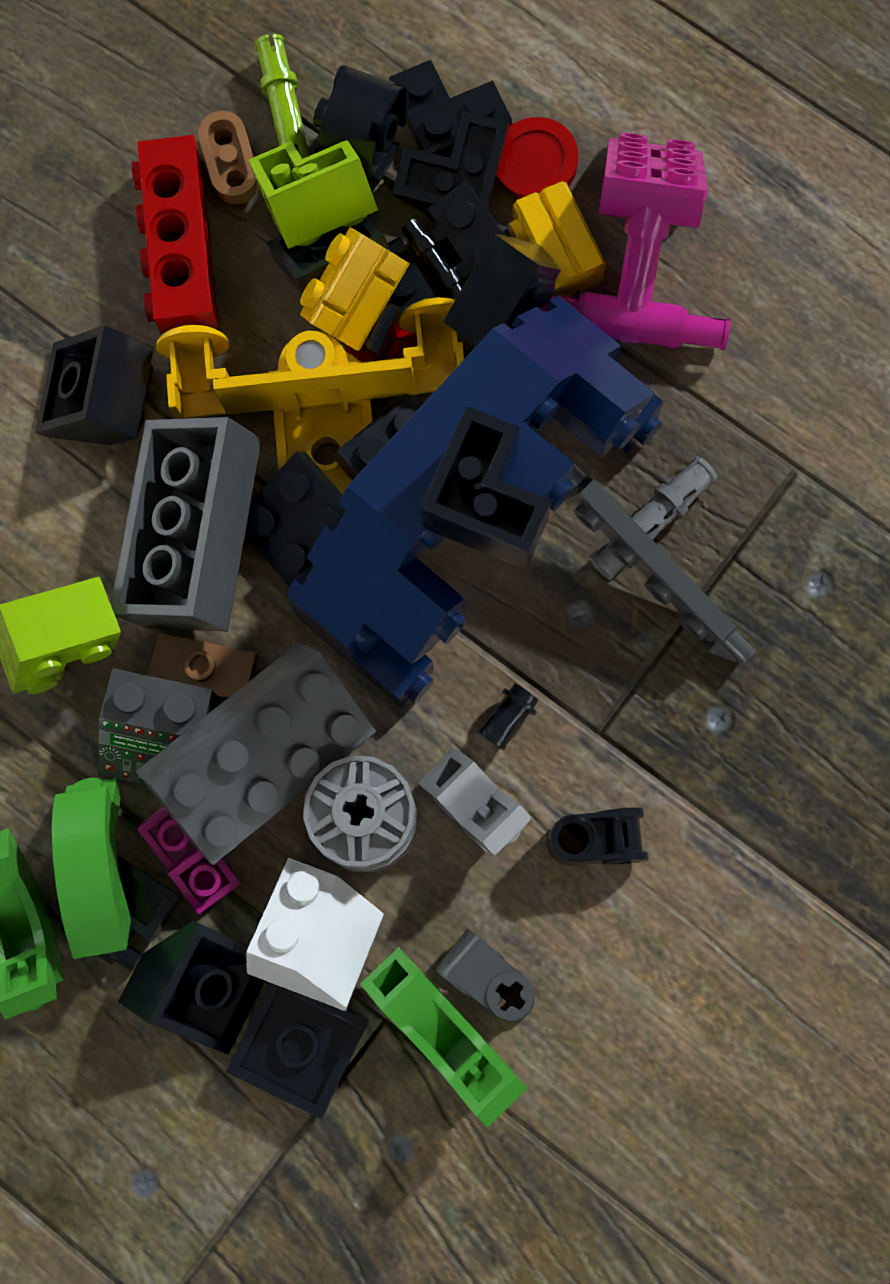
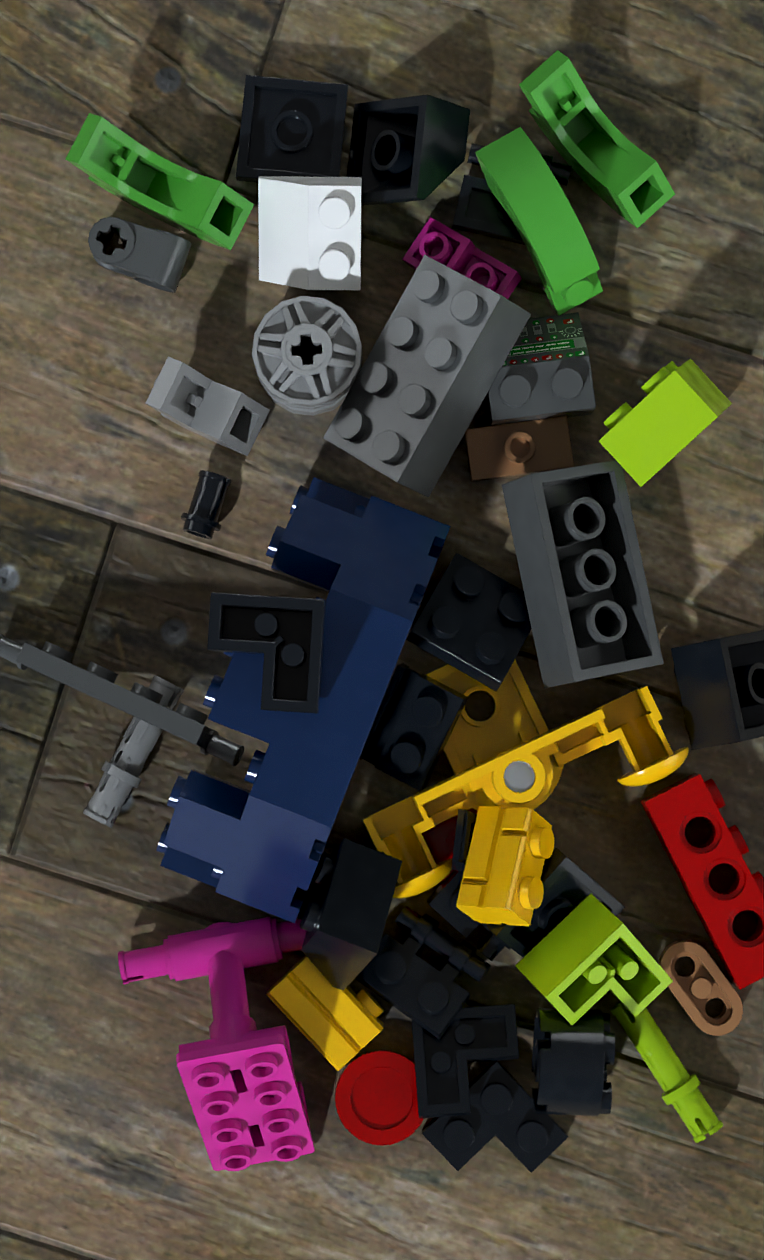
camera: 155 degrees right, 10 degrees up
(602, 838) = (78, 420): black piece -> none

